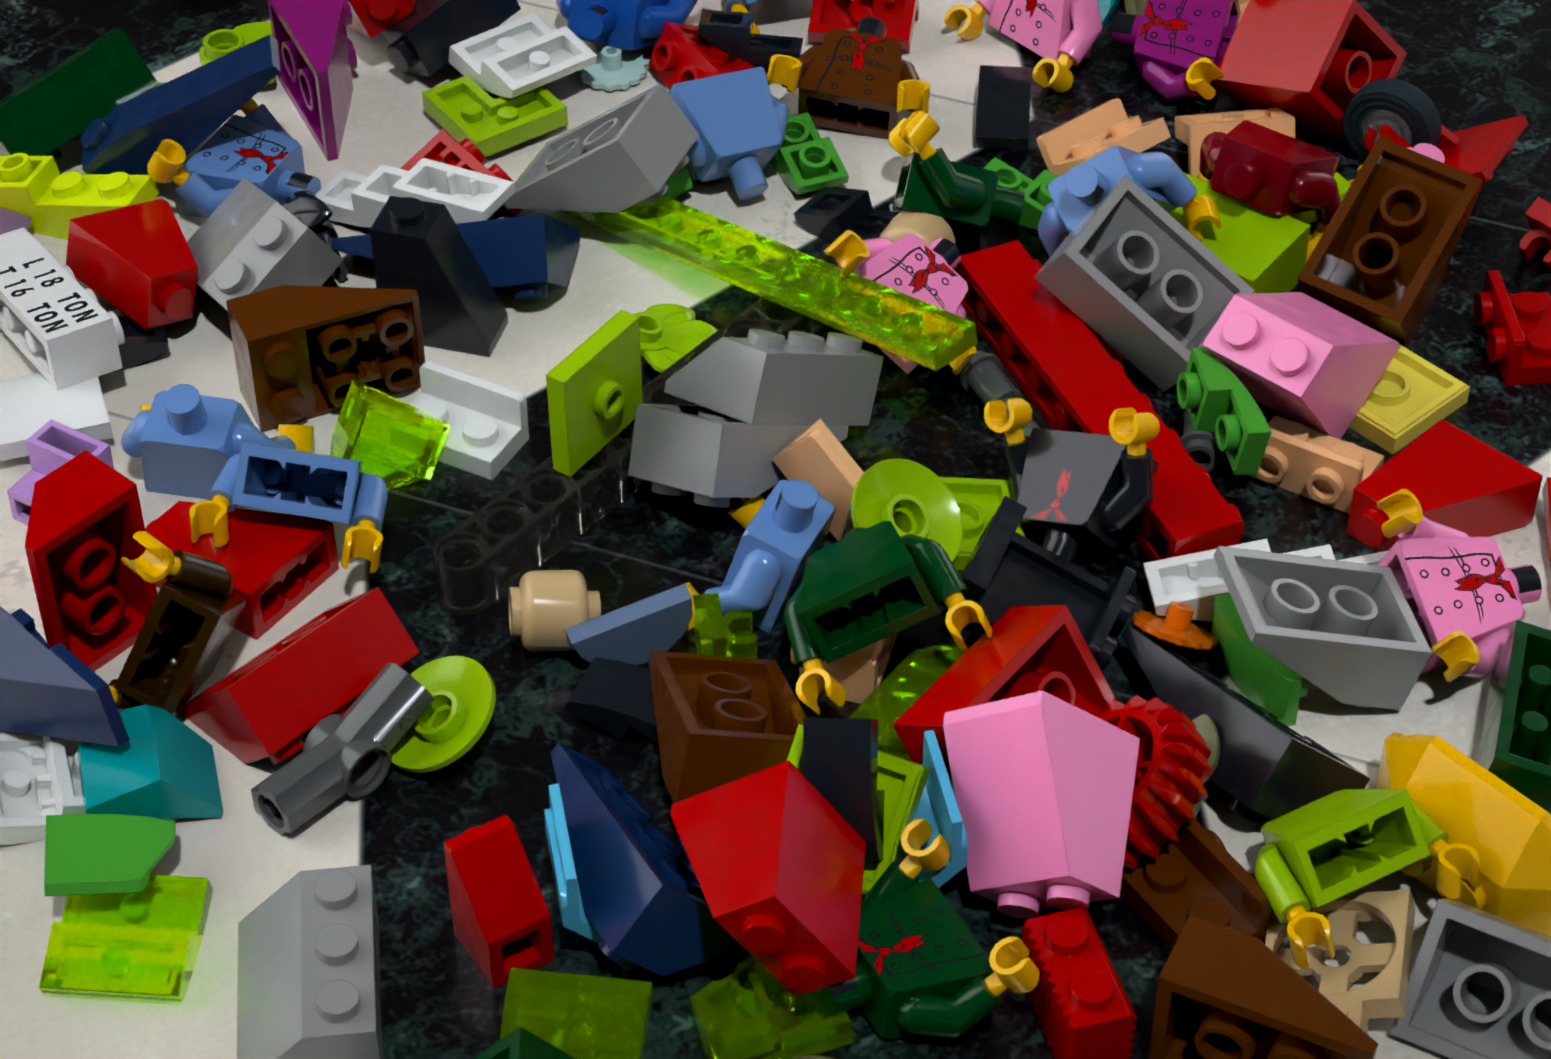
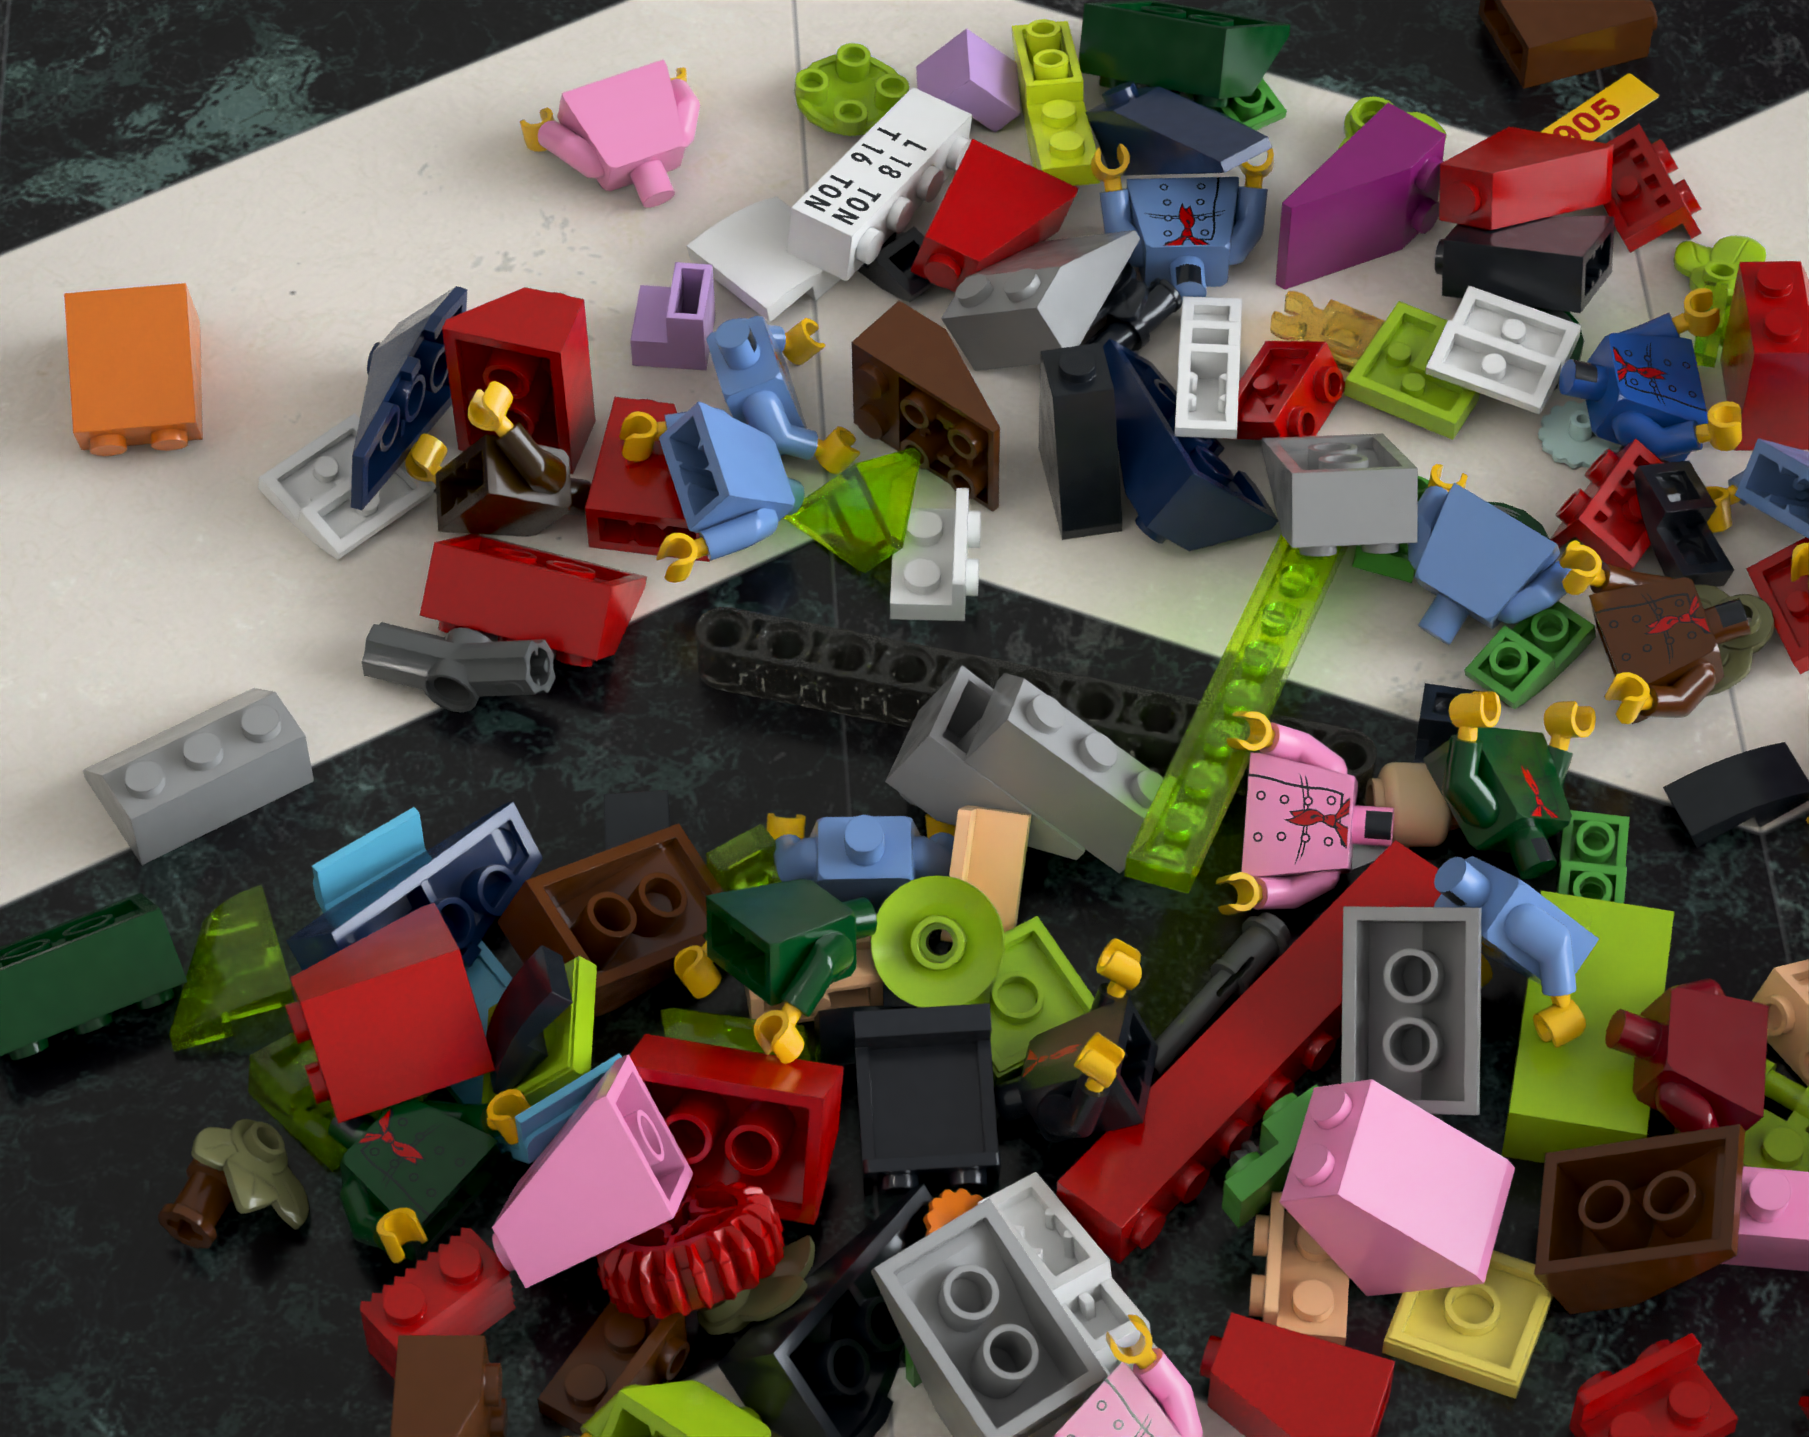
camera: 65 degrees right, 10 degrees up
(103, 852) = (260, 555): bright green slope -> none
(129, 941) = (201, 624): clear neon green slope -> none
(155, 774) = (376, 552): teal slope -> none
(408, 137) = (1341, 326): none -> clear yellow plate
(452, 720) = (535, 718): lime dish -> none
(497, 901) = (319, 820): red slope -> none
(547, 606) = (707, 733): tan head -> none
(594, 392) = (931, 623): lime plate -> none
(635, 628) = (710, 799): sand blue tile -> none
(669, 334) = (1166, 665): lime plate -> none
(1096, 132) = (1716, 898): light nougat bracket -> none

